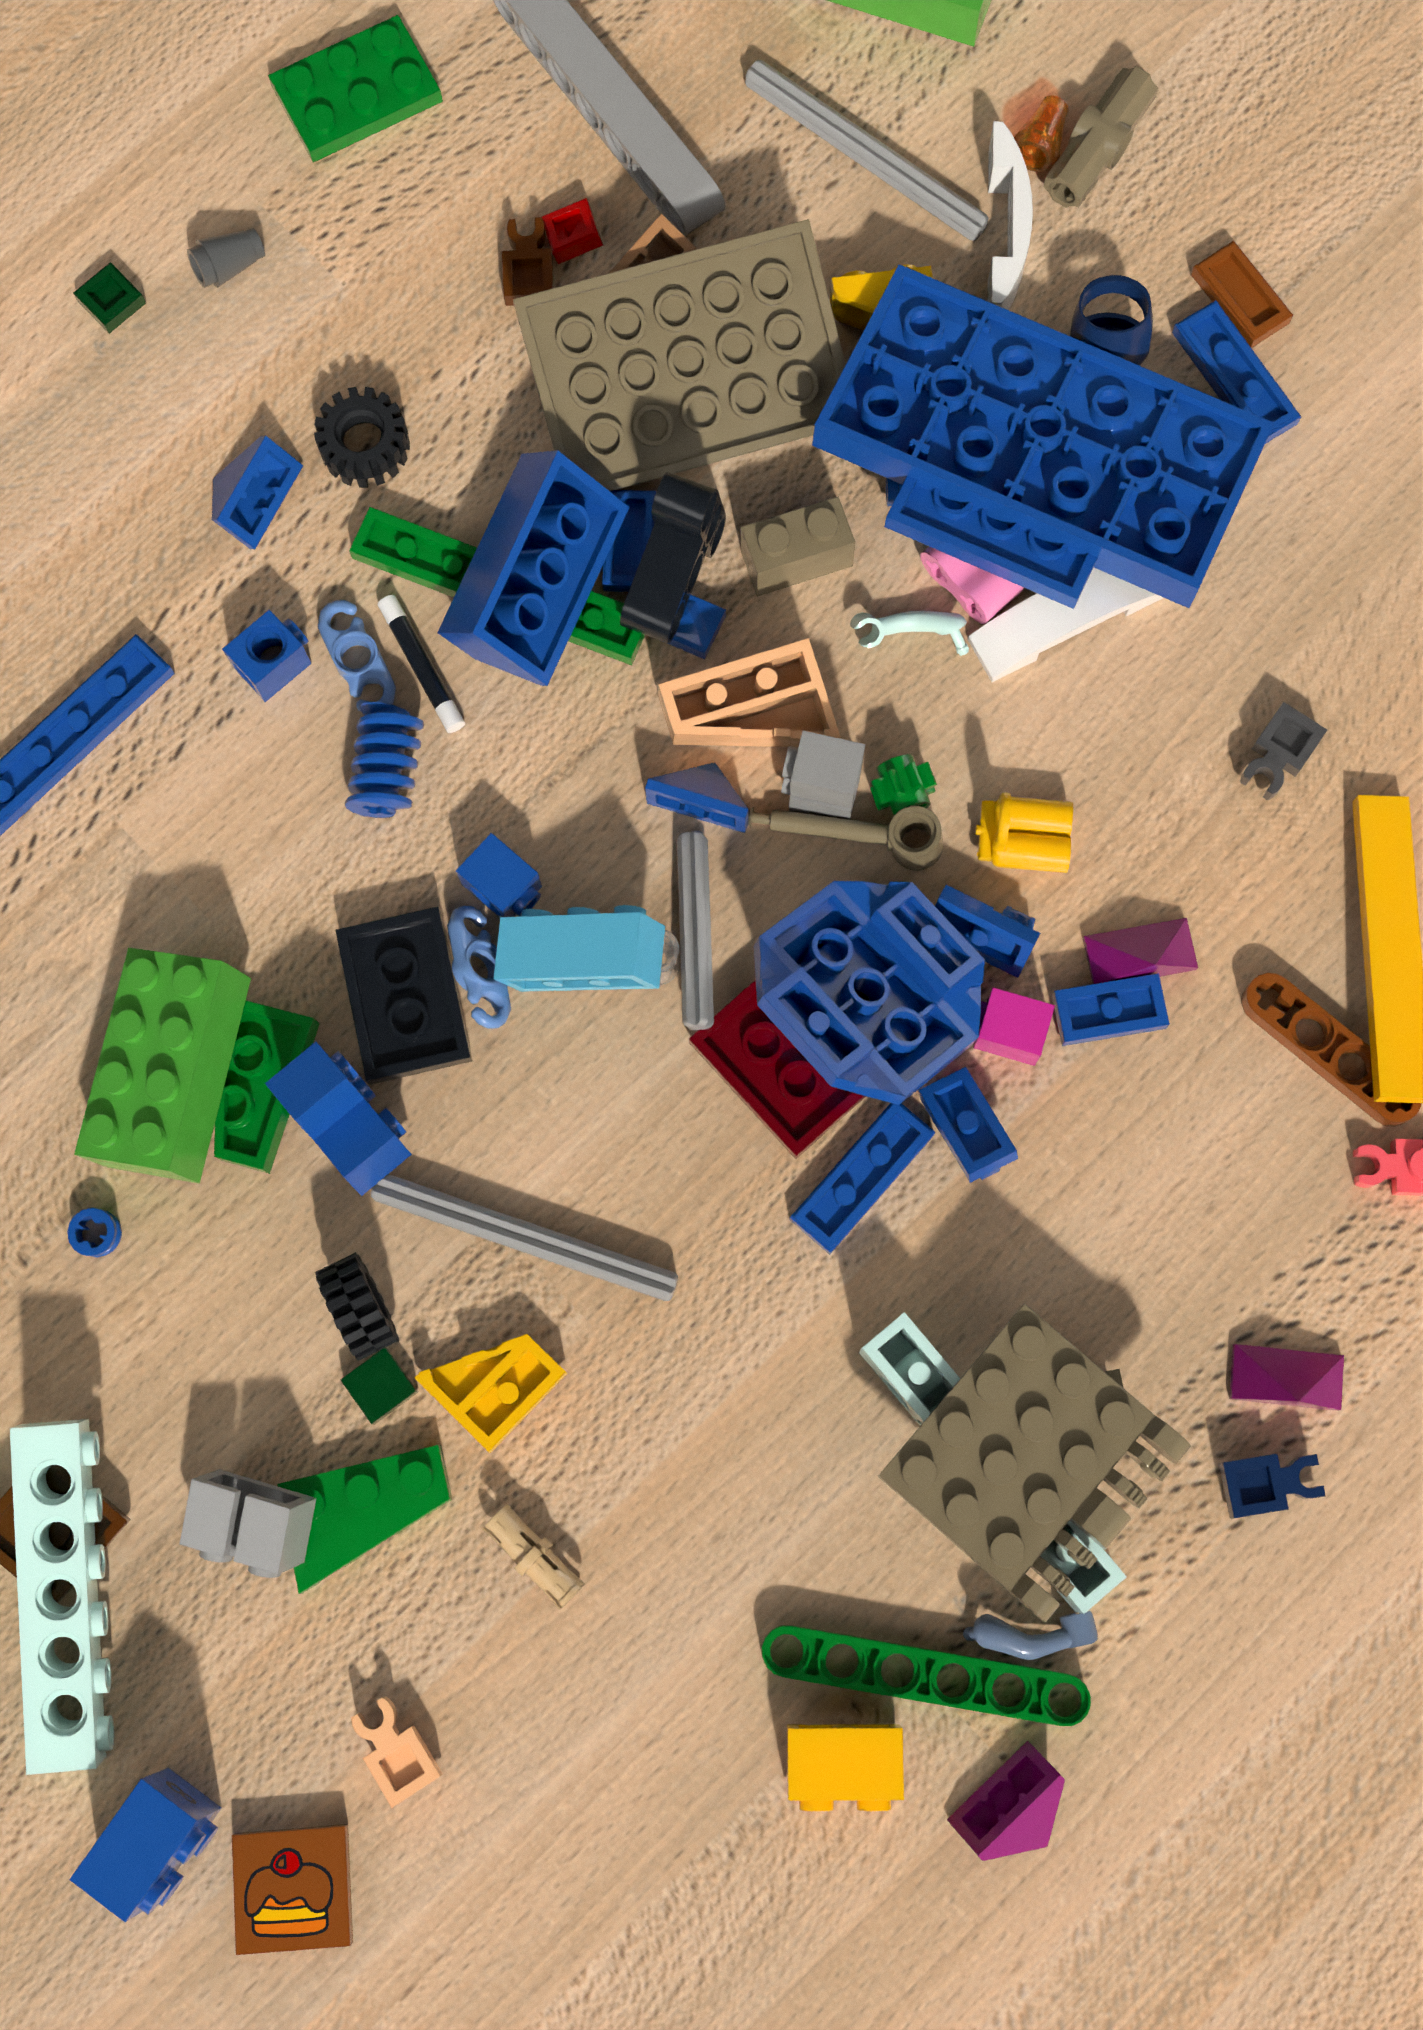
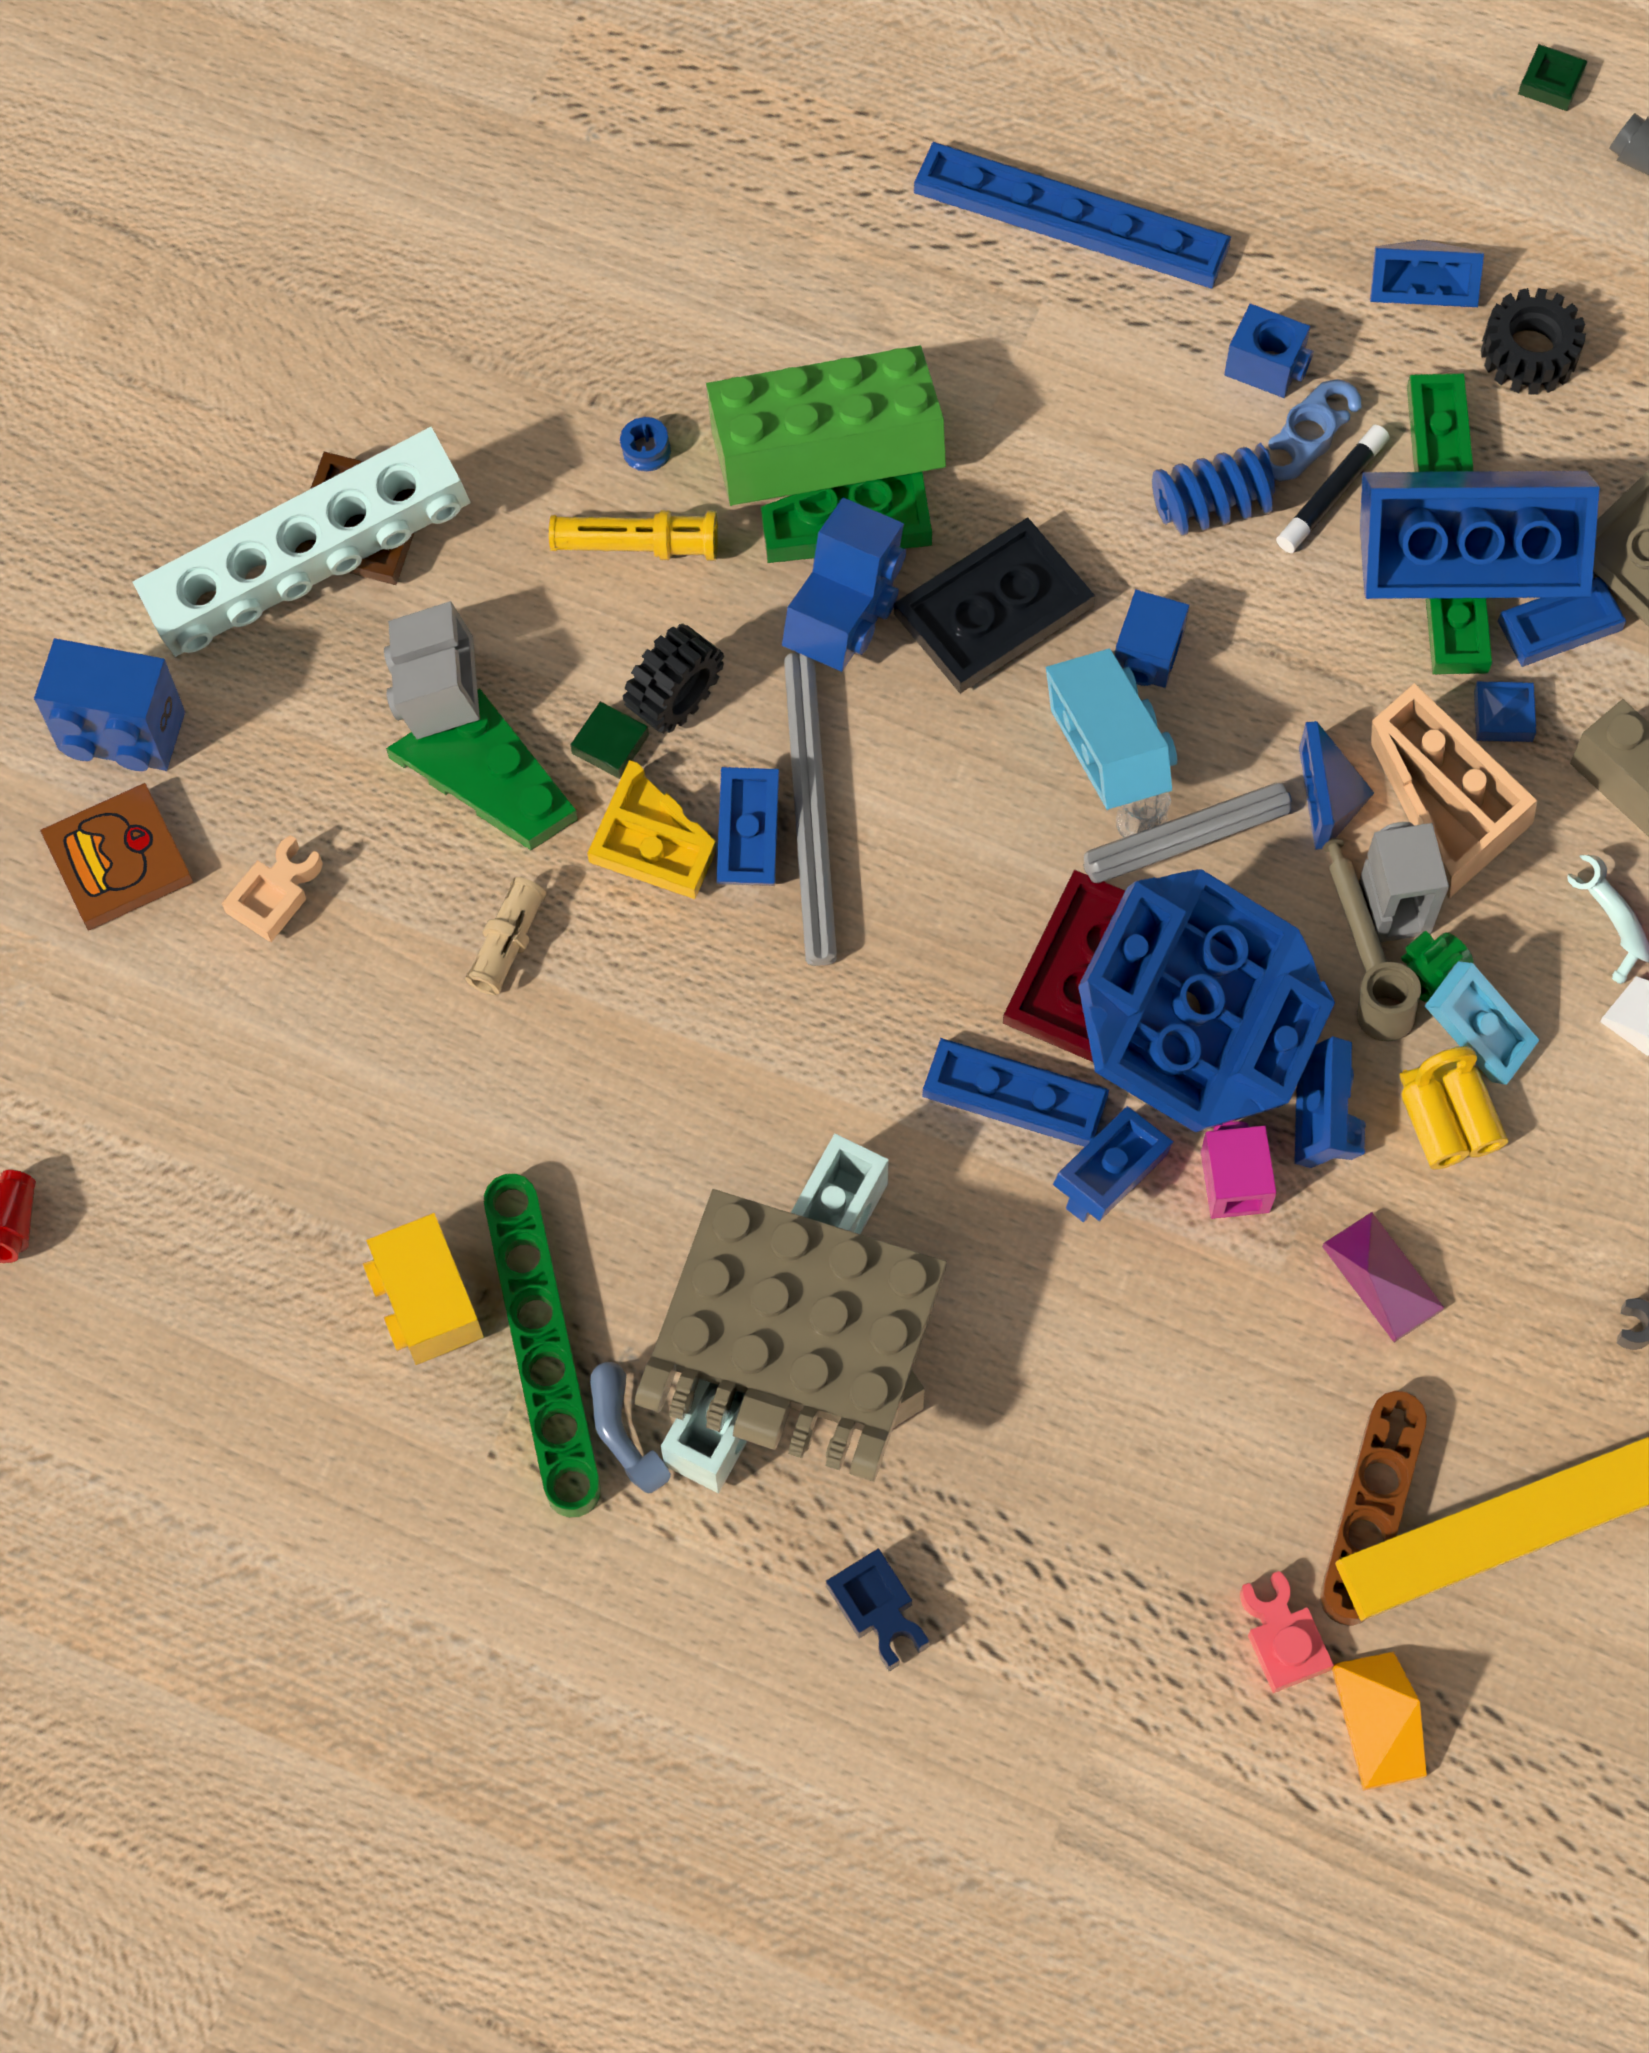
camera: 65 degrees right, 10 degrees down
(156, 1341) = (662, 534): none -> yellow pin
(467, 945) = (1069, 635): medium blue piece -> none
(526, 1299) = (747, 826): none -> blue hinge
(685, 530) = (1559, 648): black beam -> none
(970, 774) = (1483, 1021): none -> medium azure plate
(1012, 1808) = (442, 1477): magenta slope -> none
(1110, 1009) = (1304, 1263): blue plate -> none
(1287, 1377) = (1000, 1593): magenta slope -> none

